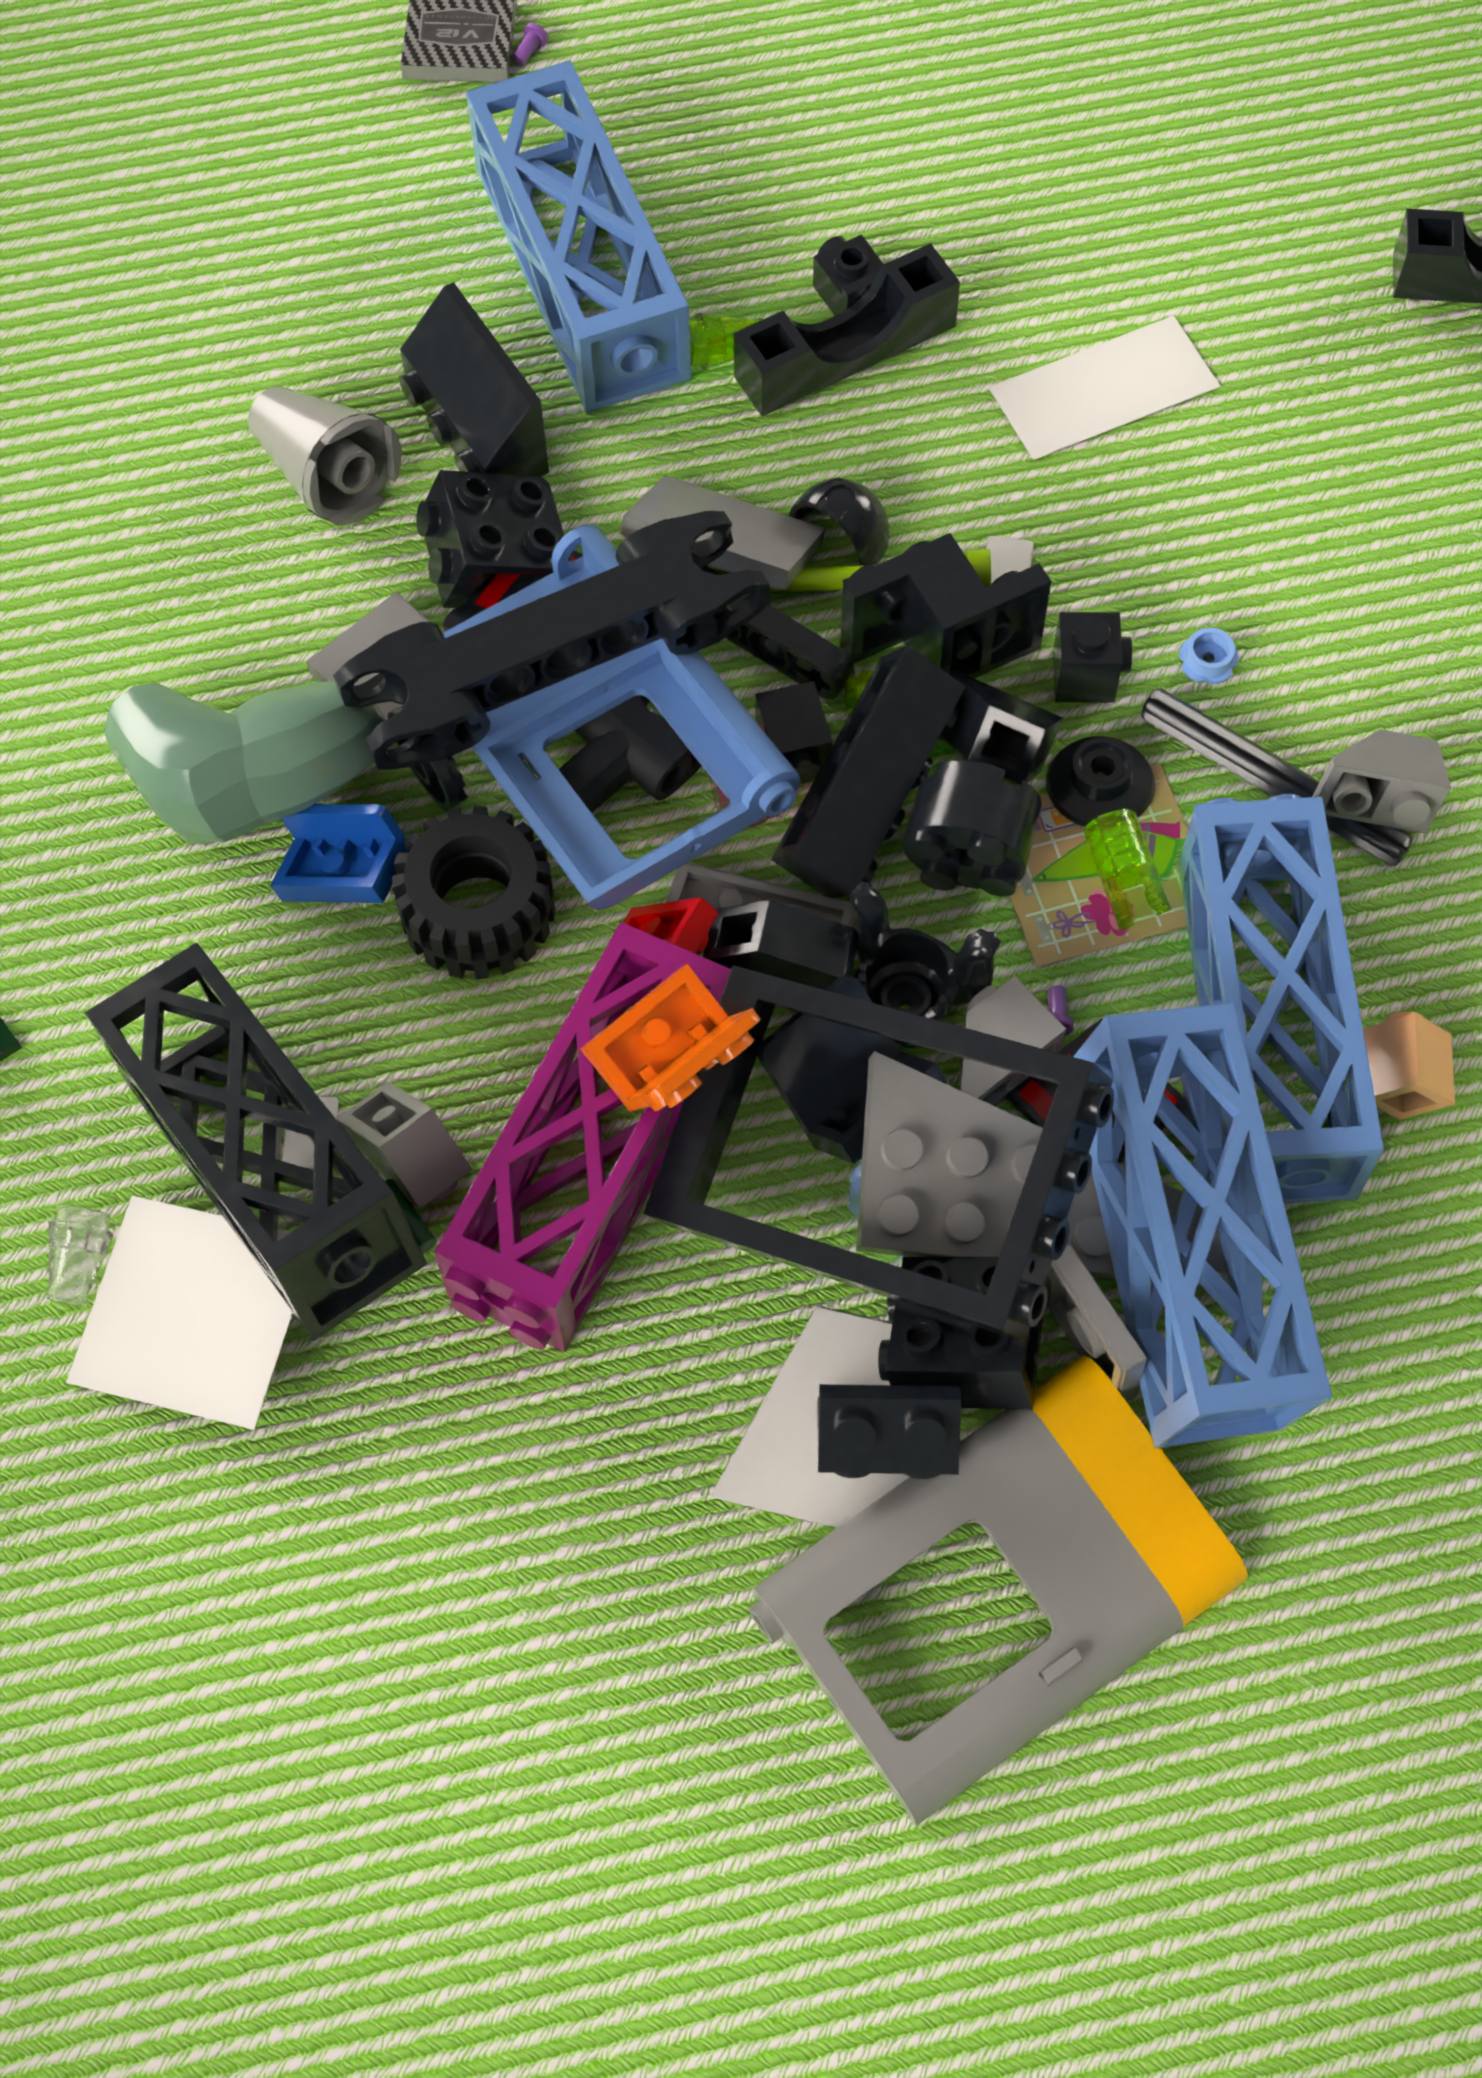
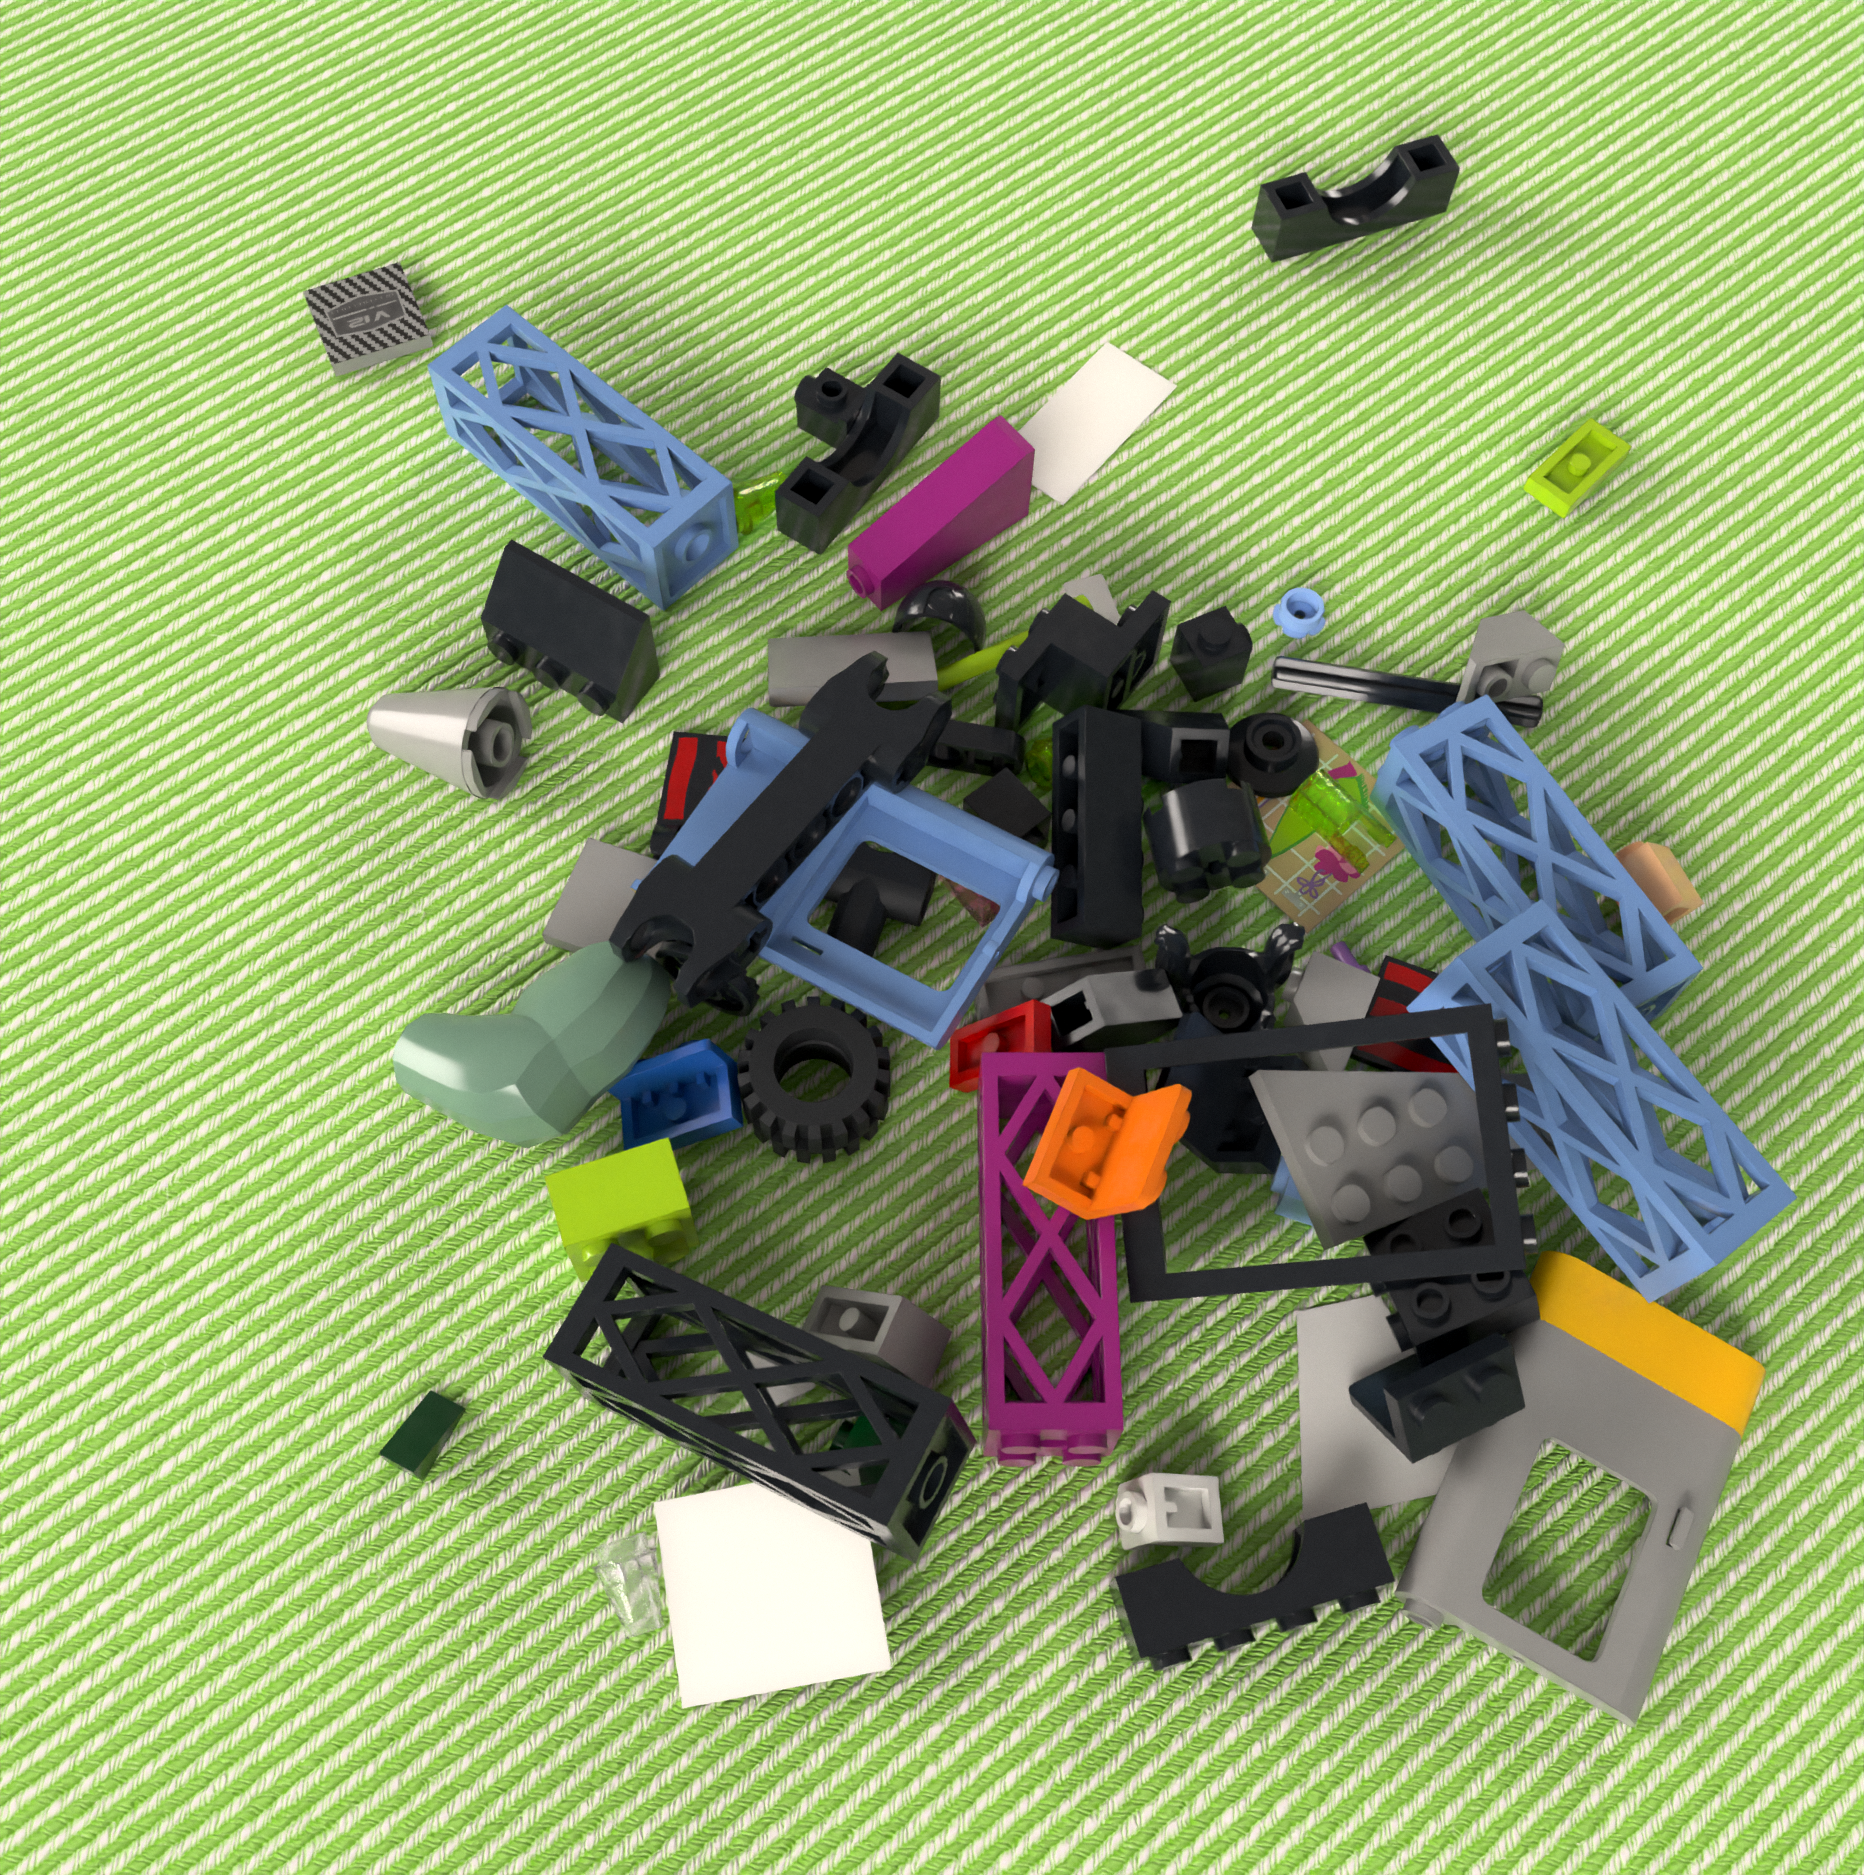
camera: 30 degrees left, 0 degrees up
(243, 920) = (623, 1200): none -> lime piece
(486, 526) = (641, 748): black bracket -> none
(534, 37) = (437, 298): medium lavender piece -> none
(585, 1420) = (1169, 1511): none -> white bracket
(700, 1538) = (1330, 1563): none -> black arch
(896, 422) = (945, 515): none -> magenta slope
(1093, 1323) = (1567, 1225): light grey tile -> none

